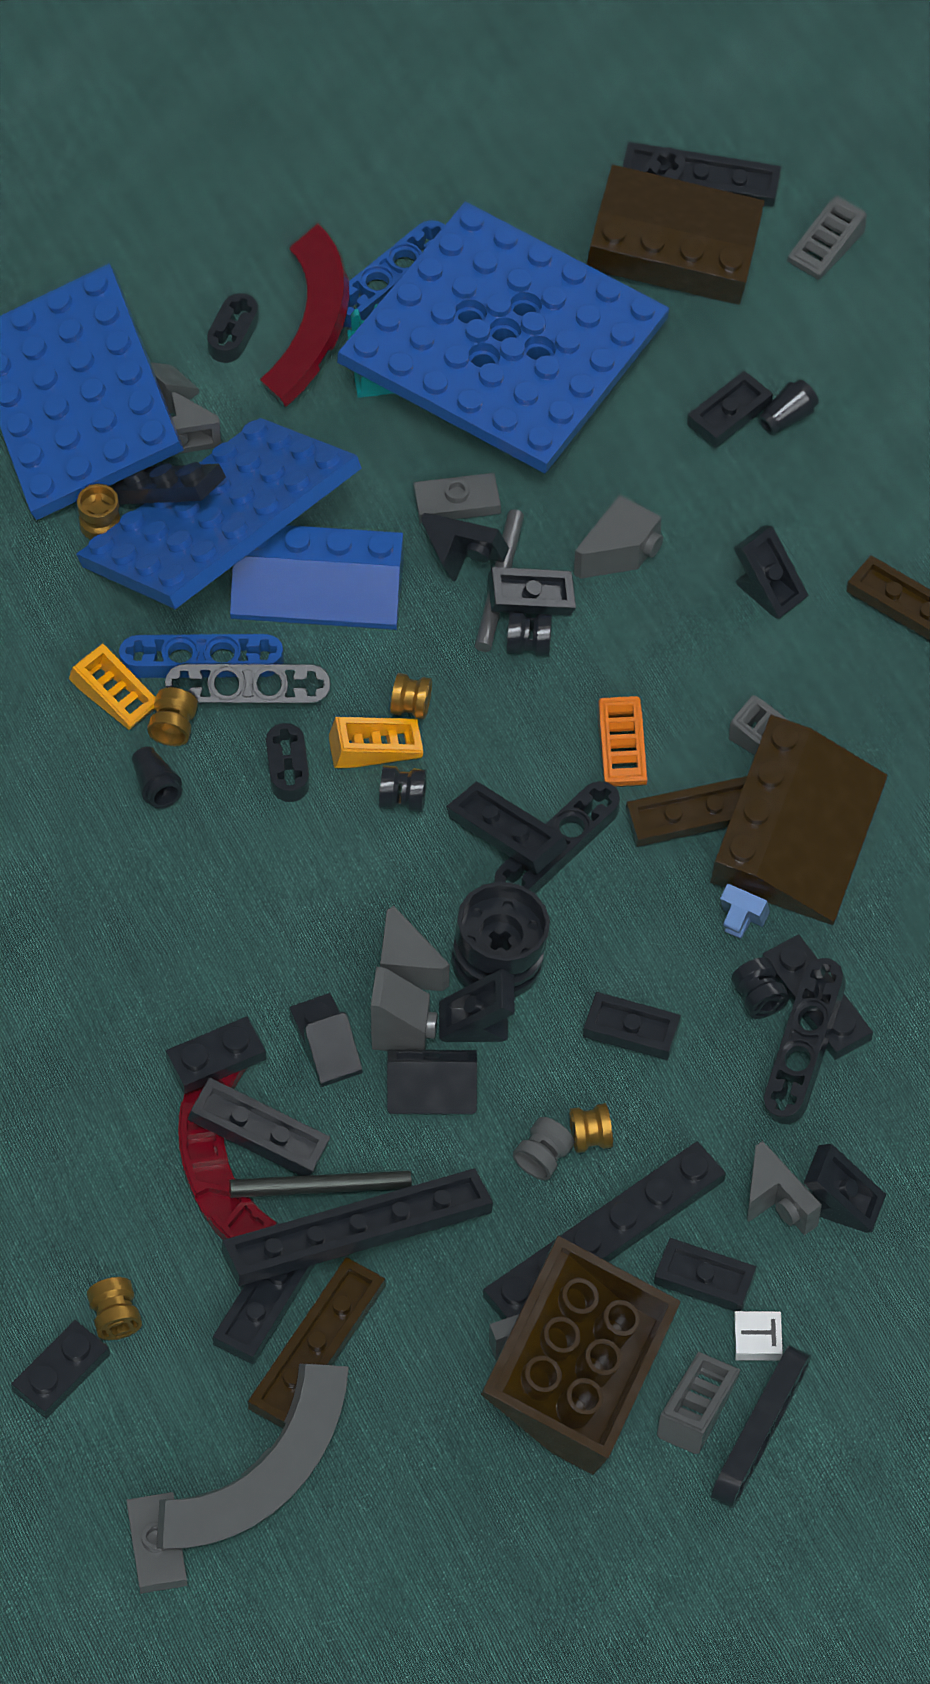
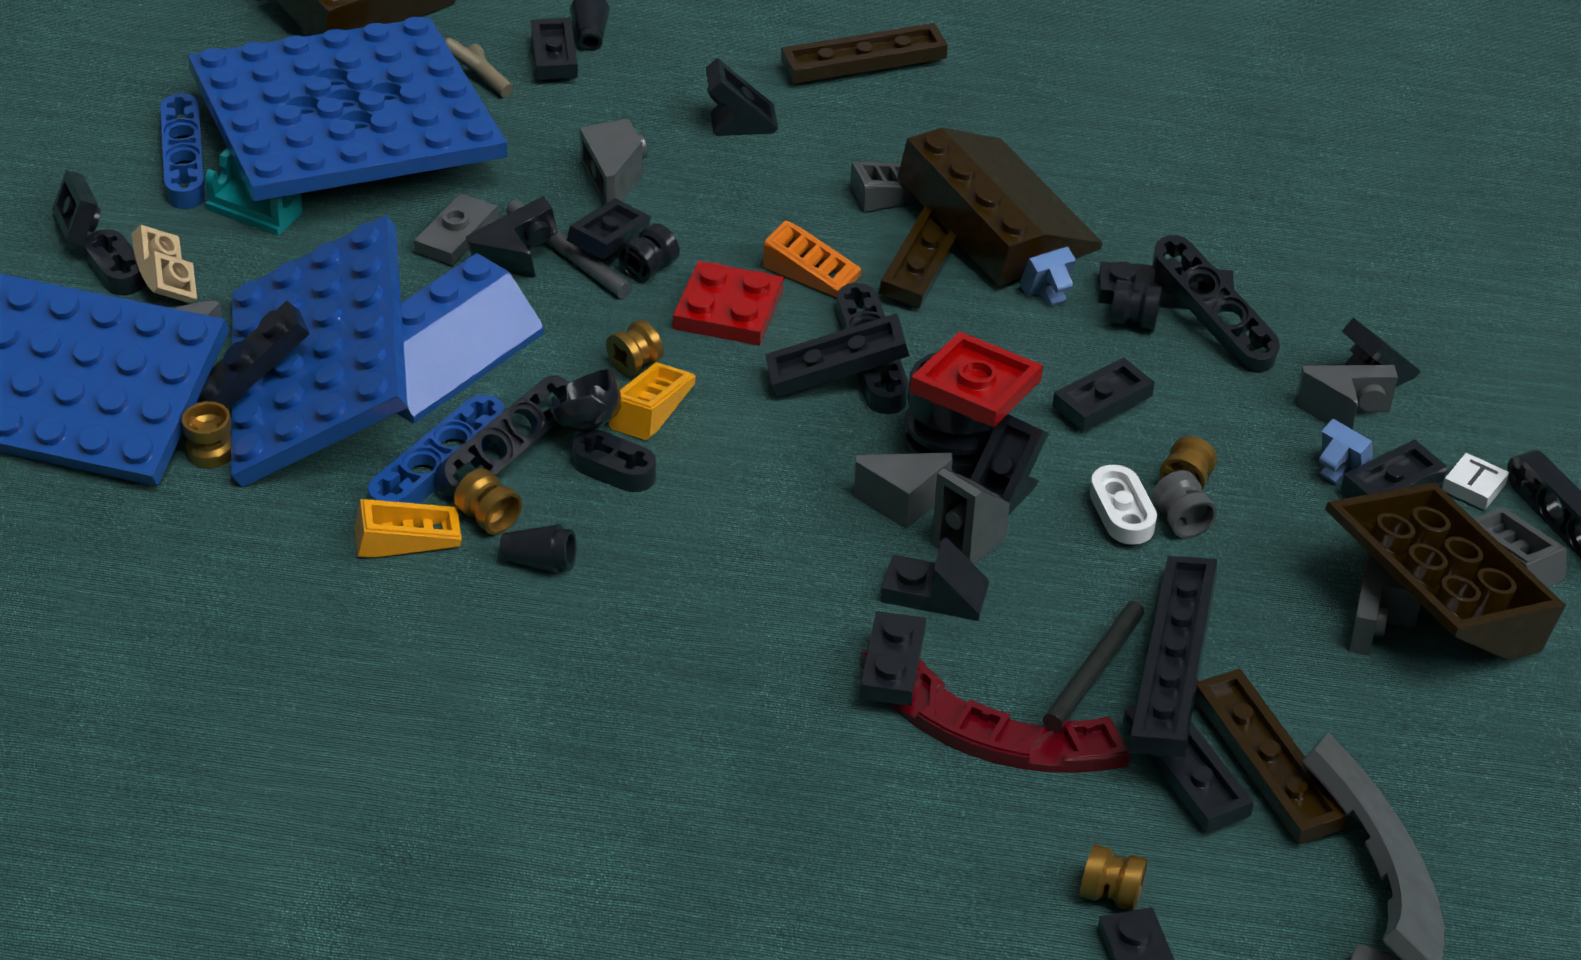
camera: 55 degrees left, 15 degrees down
(246, 359) = (162, 265): none -> tan slope
(258, 1128) = (1001, 669): black plate -> none
(261, 259) = (76, 208): none -> black plate
(311, 710) = (588, 401): none -> black hair
(322, 317) = (177, 191): dark red tile -> none
(412, 788) = (721, 403): black wheel -> none
(432, 1081) = (1048, 537): black panel -> none
(495, 930) = (976, 379): none -> red plate
(509, 1110) = (1123, 504): none -> white plate
(528, 720) = (728, 303): none -> red plate
(618, 1222) = (1299, 523): black plate -> none
(662, 374) = (475, 59): none -> dark tan piece
(698, 1223) = (1342, 451): none -> medium blue tile

